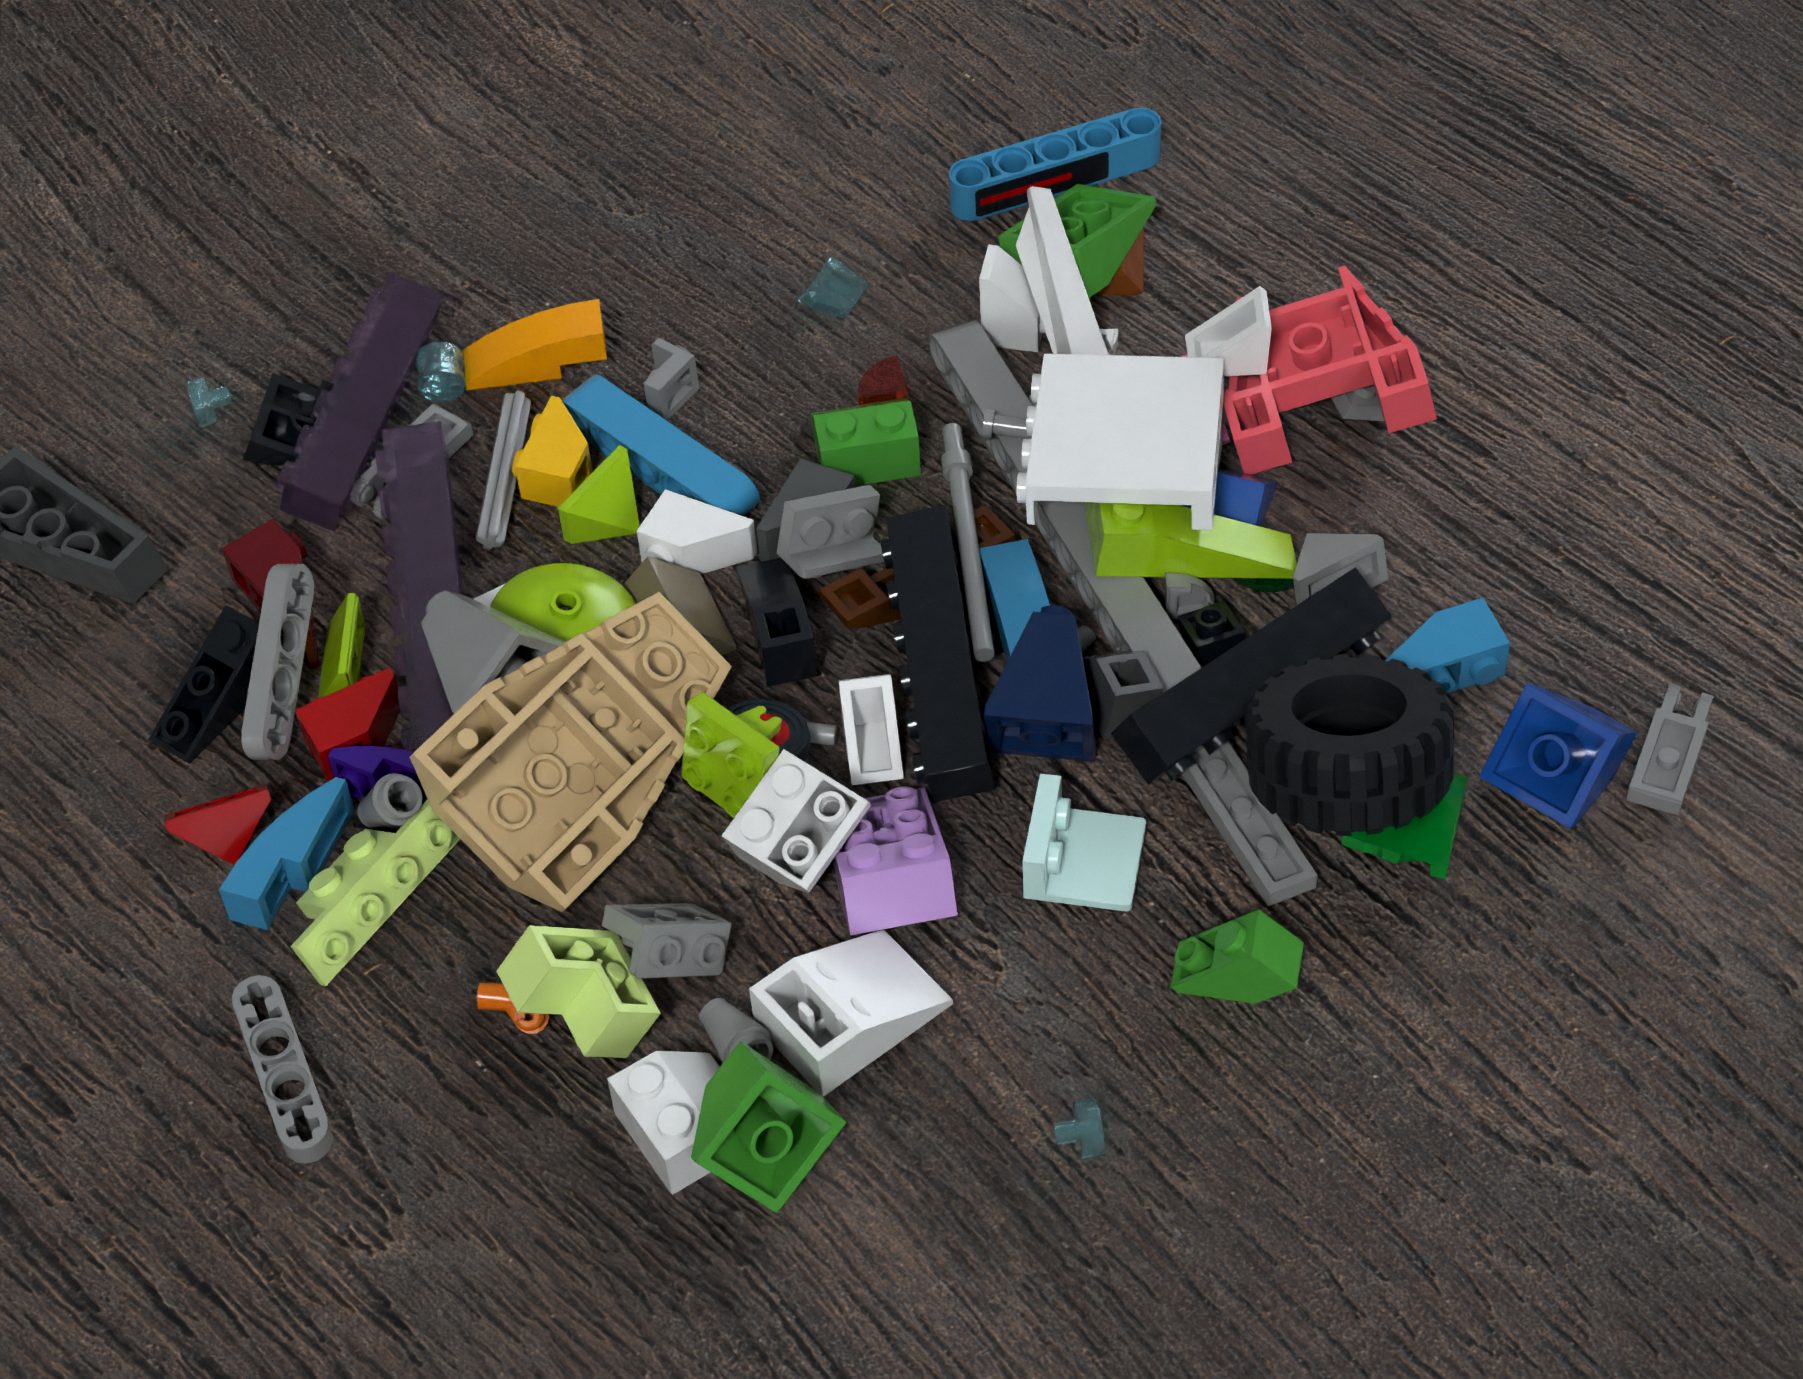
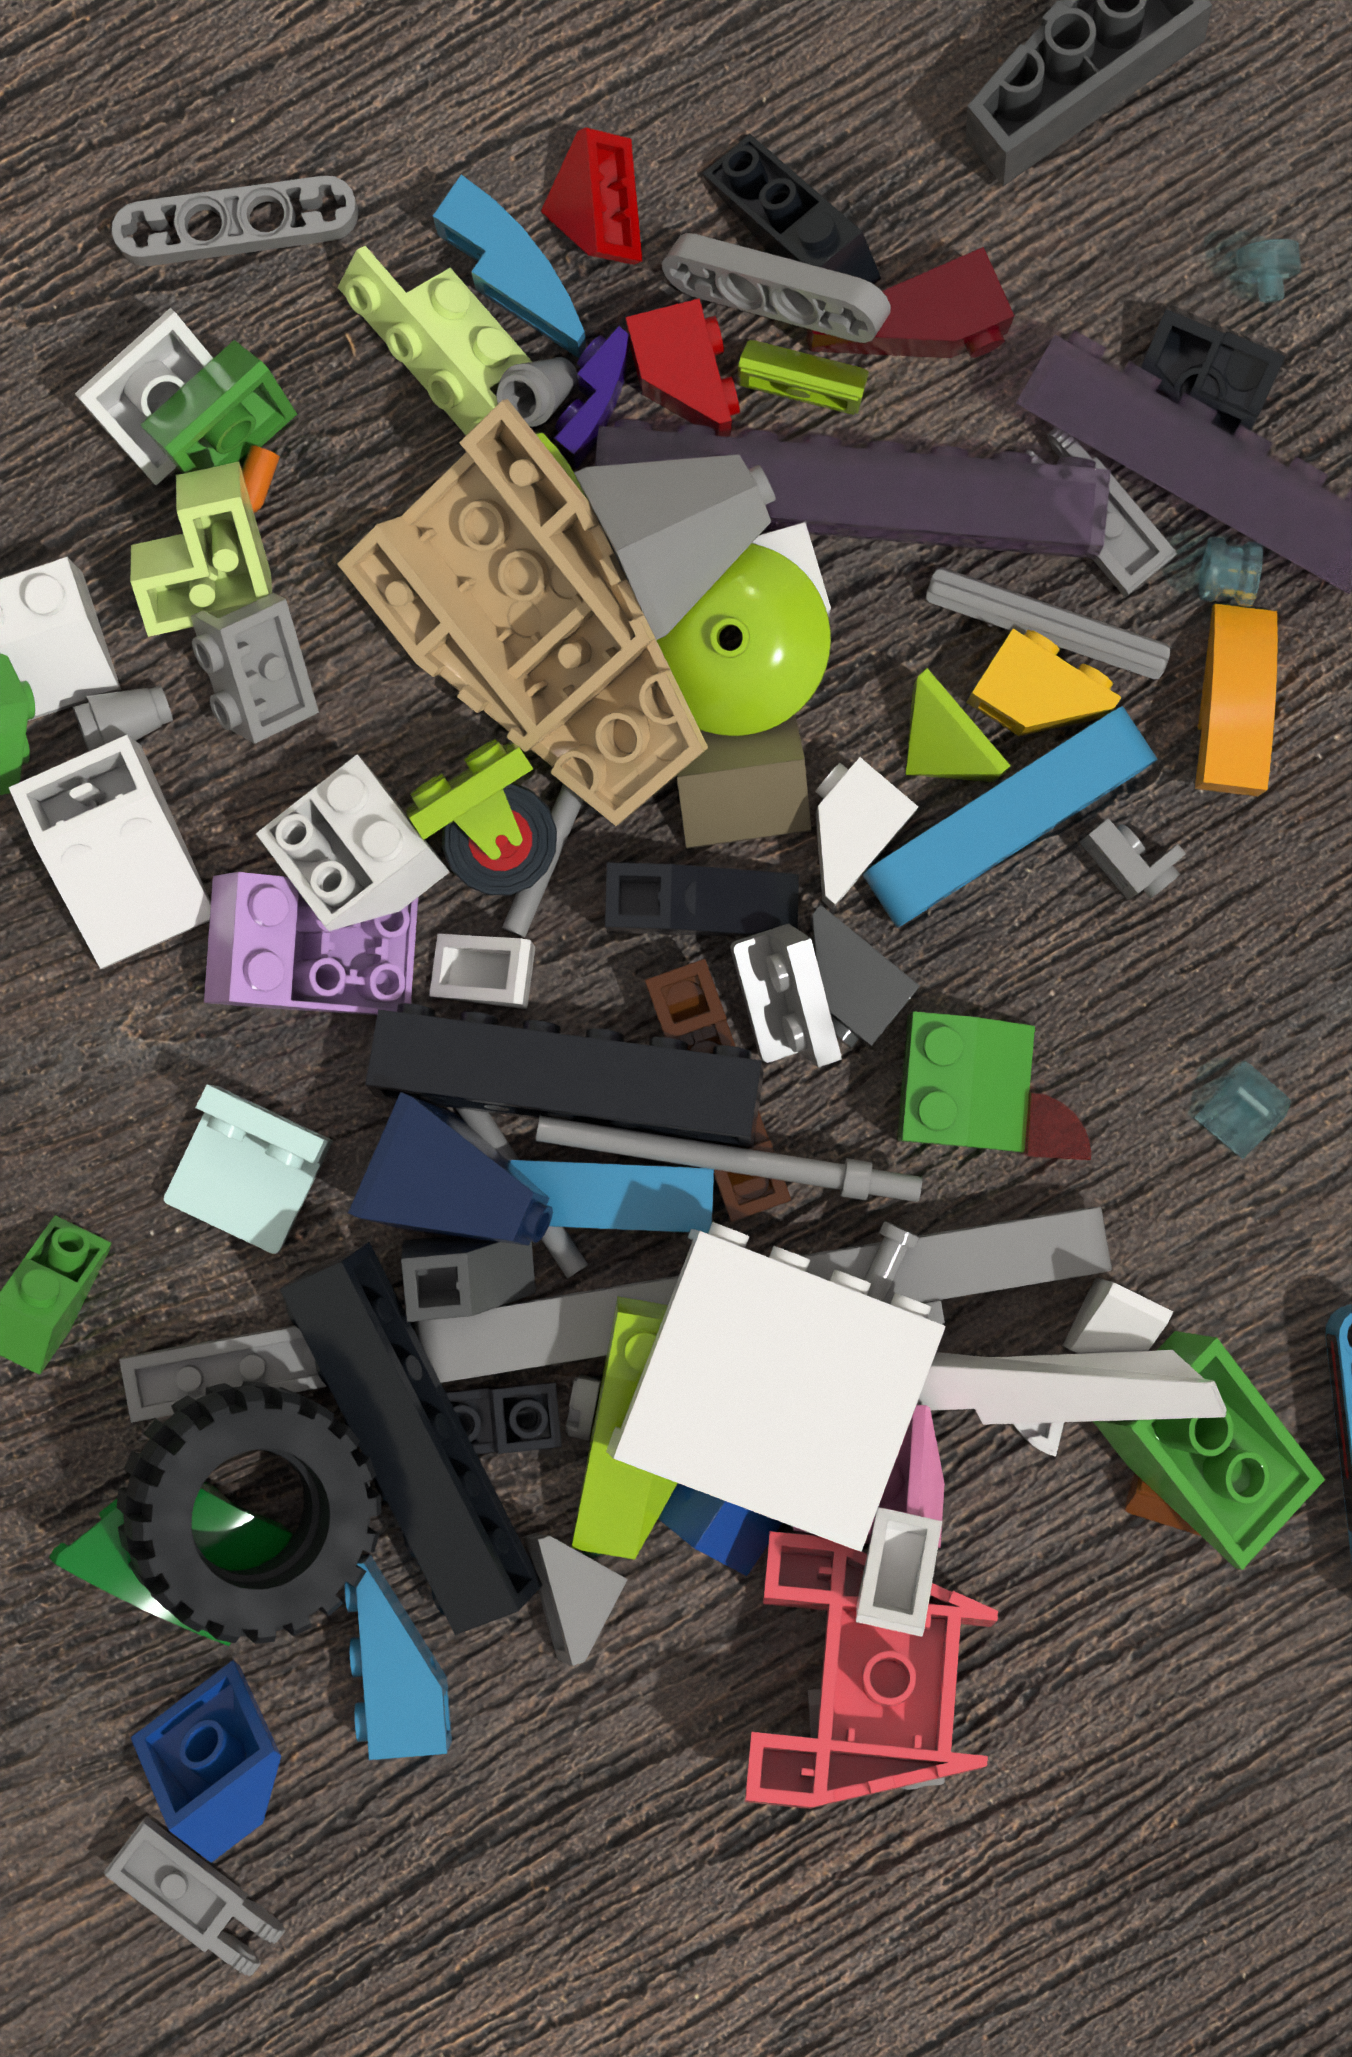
camera: 105 degrees right, 35 degrees up
(447, 1077) = (139, 383): none -> white slope
(456, 1010) = (220, 412): none -> bright green slope

